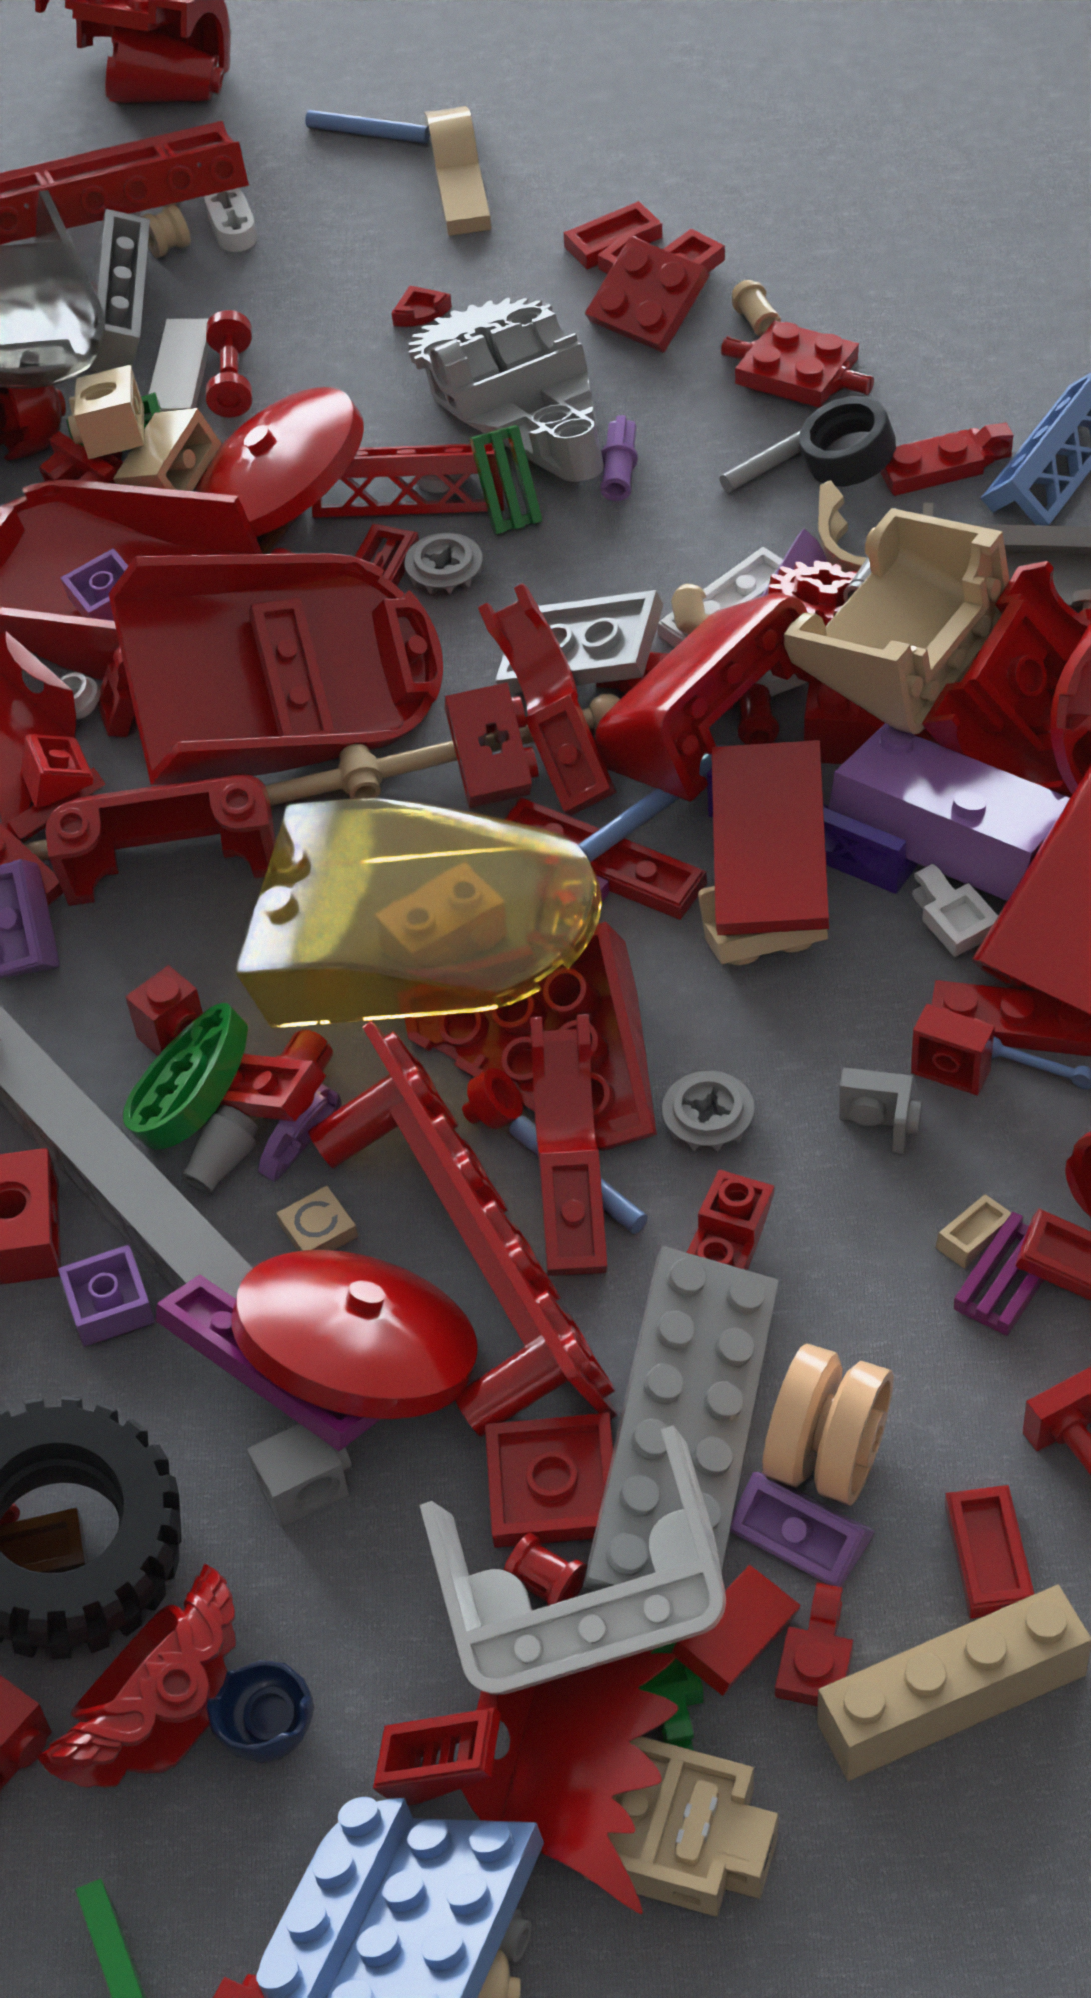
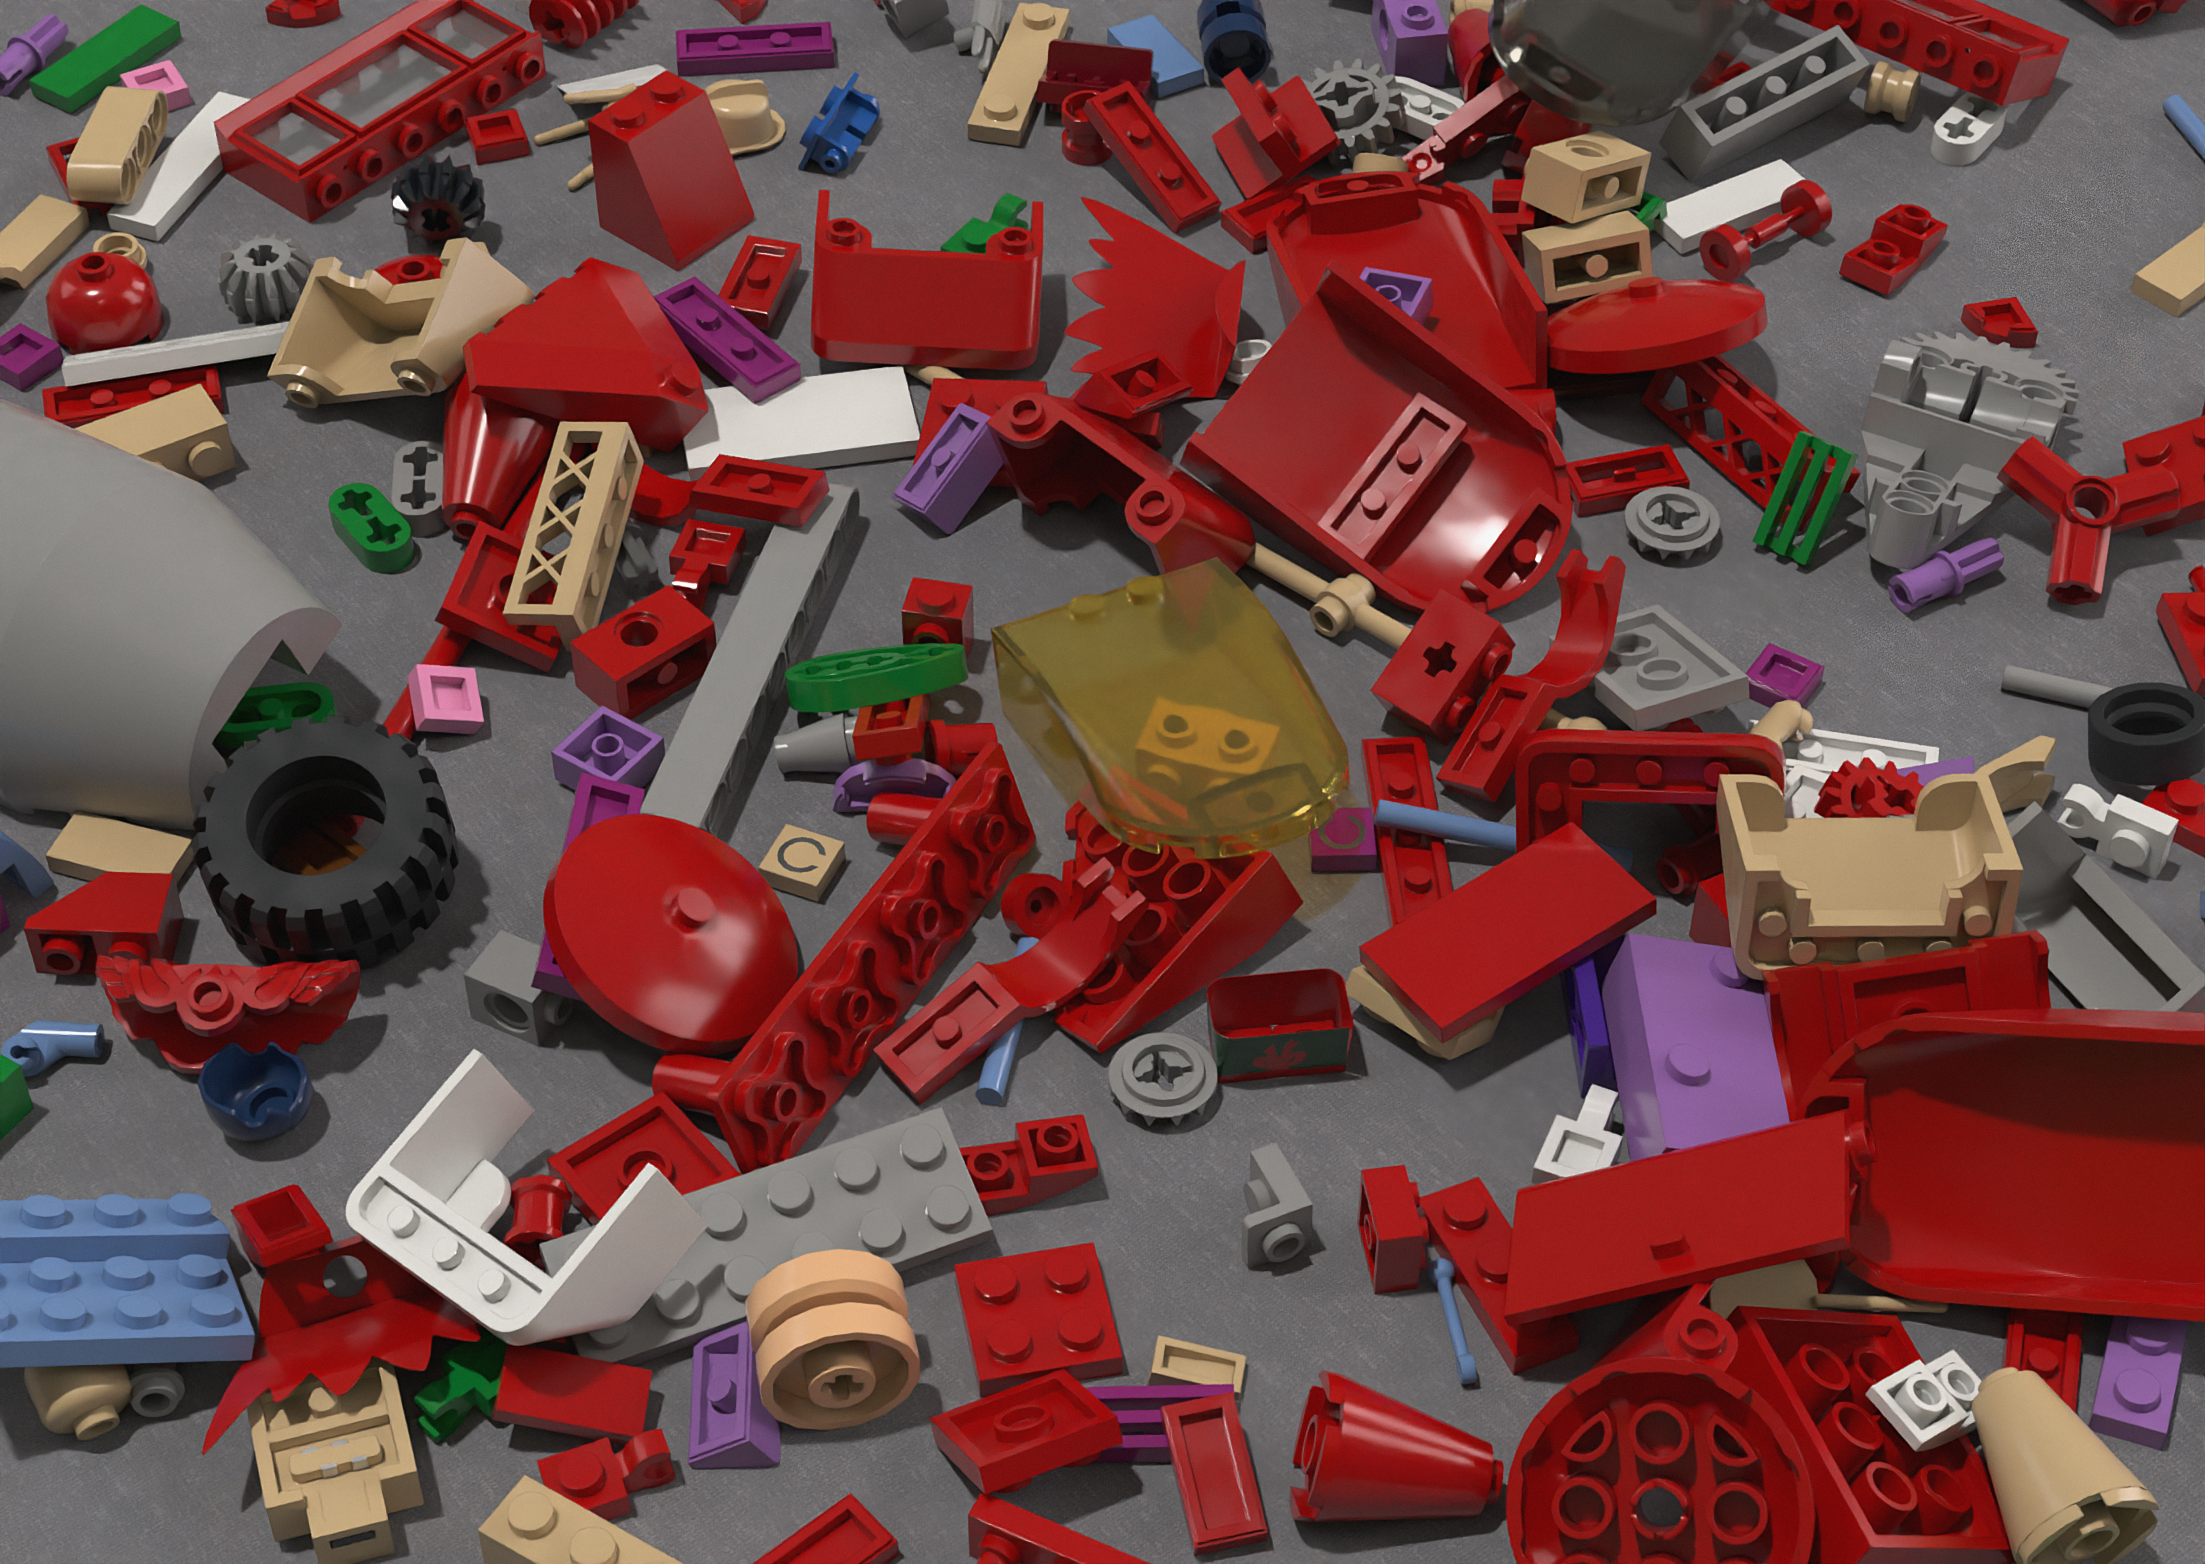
camera: 50 degrees right, 5 degrees down
(59, 1855) = (49, 1041): none -> medium blue arm
(303, 315) = (1895, 248): none -> red slope
(629, 580) = (1782, 676): none -> magenta tile
(645, 360) = (2078, 541): none -> red piece
(725, 980) = (1298, 1001): none -> red piece
(864, 1300) = (1037, 1317): none -> red plate
(909, 496) = (2125, 829): none -> white plate
(981, 1350) = (1026, 1432): none -> red plate

